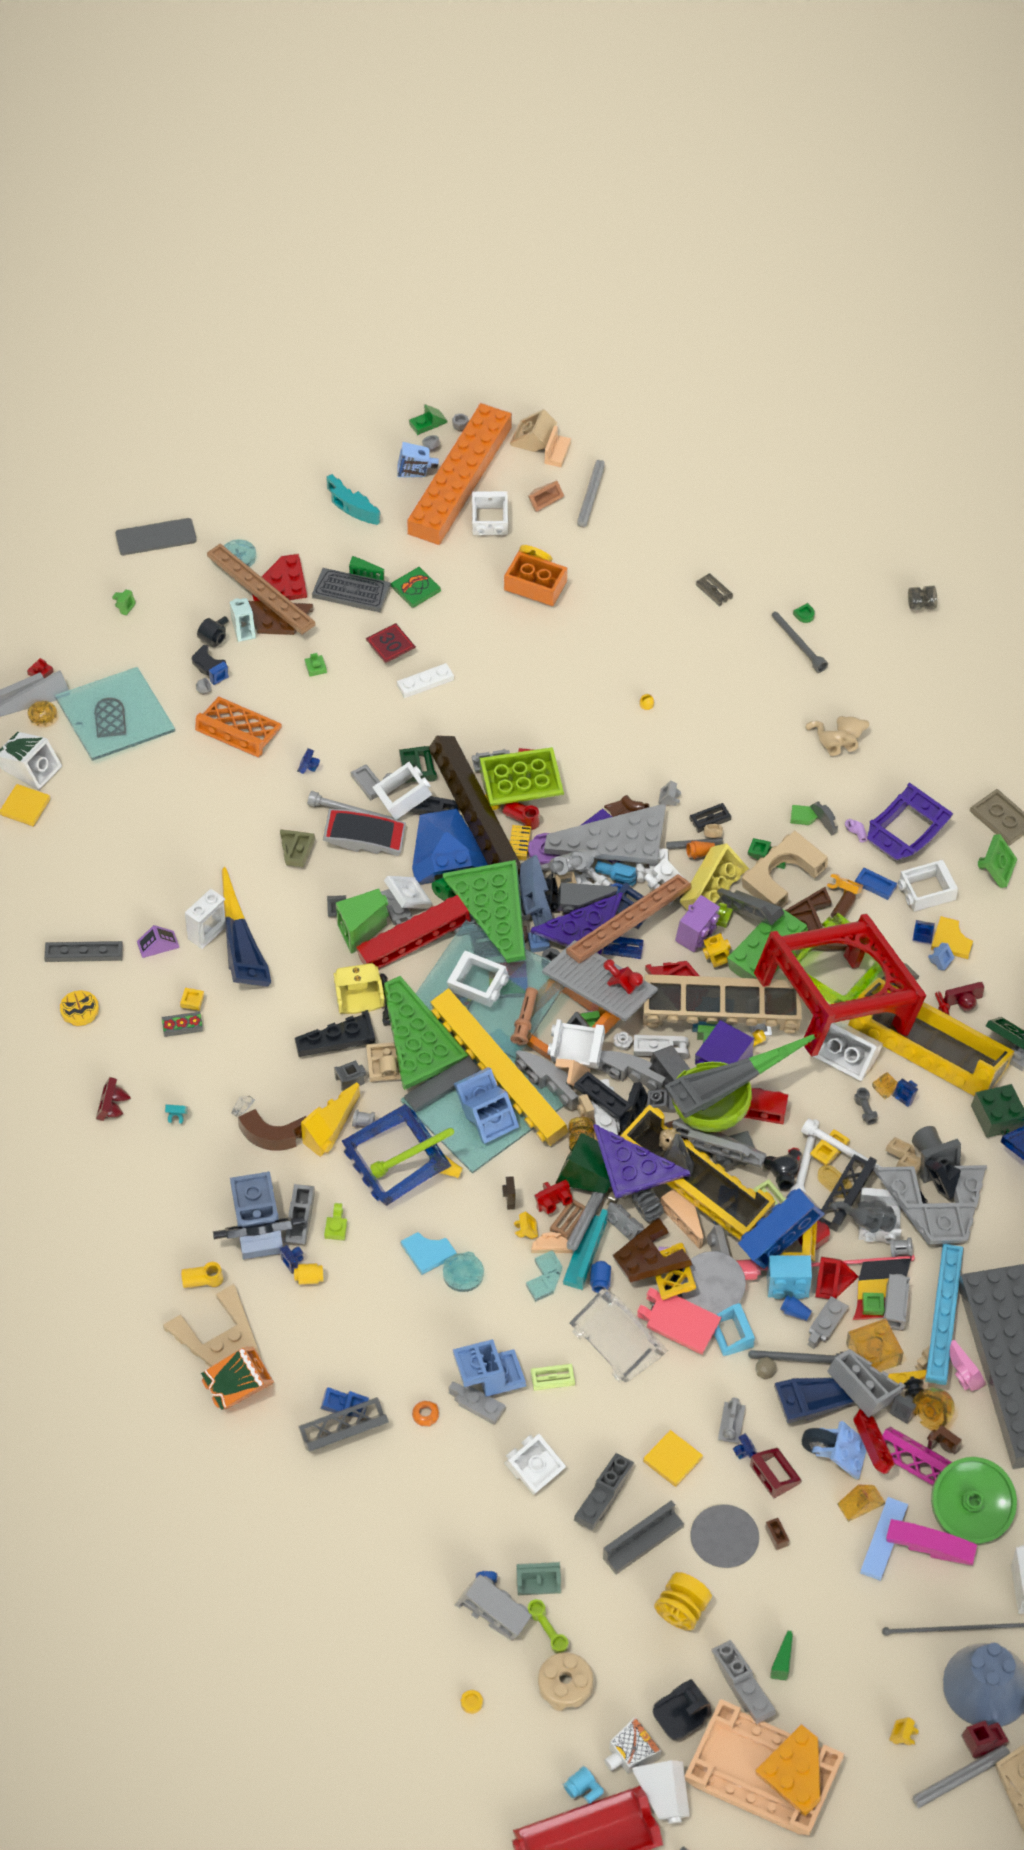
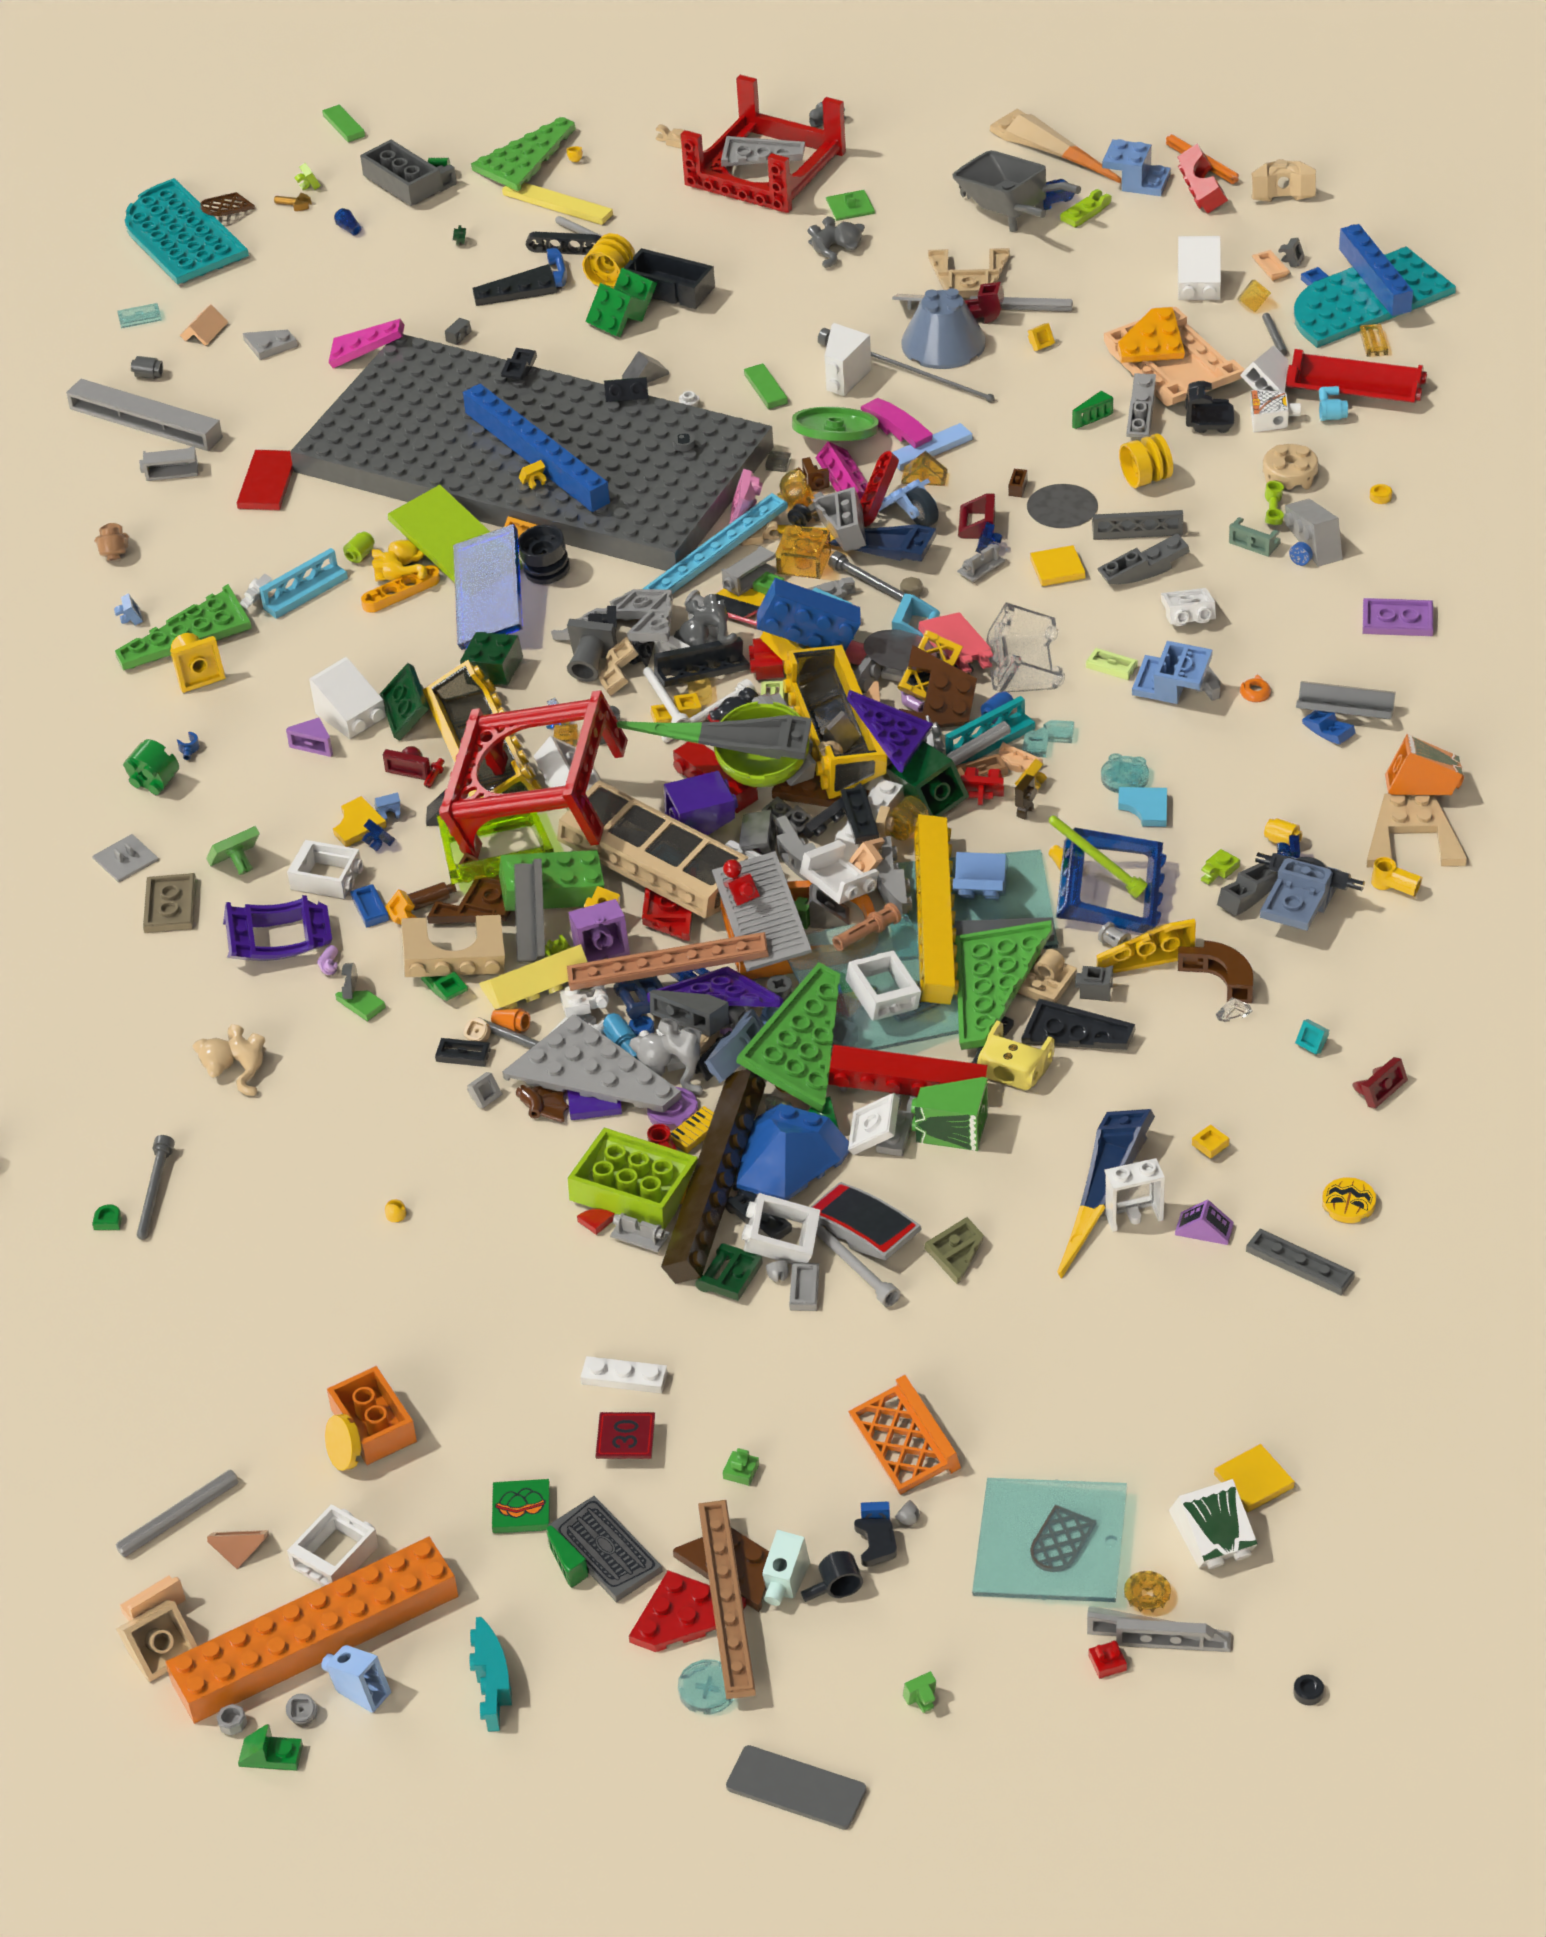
camera: 140 degrees left, 10 degrees down
(182, 1024) = (1241, 1126): tile -> none
(308, 762) = (859, 1339): clear blue tile -> none
(331, 903) = (963, 1156): dark grey tile -> none
(365, 1556) = (1398, 617): none -> medium lavender tile
(711, 590) = (173, 1318): clear smoke tile -> none
(990, 1448) = (778, 461): none -> clear smoke tile

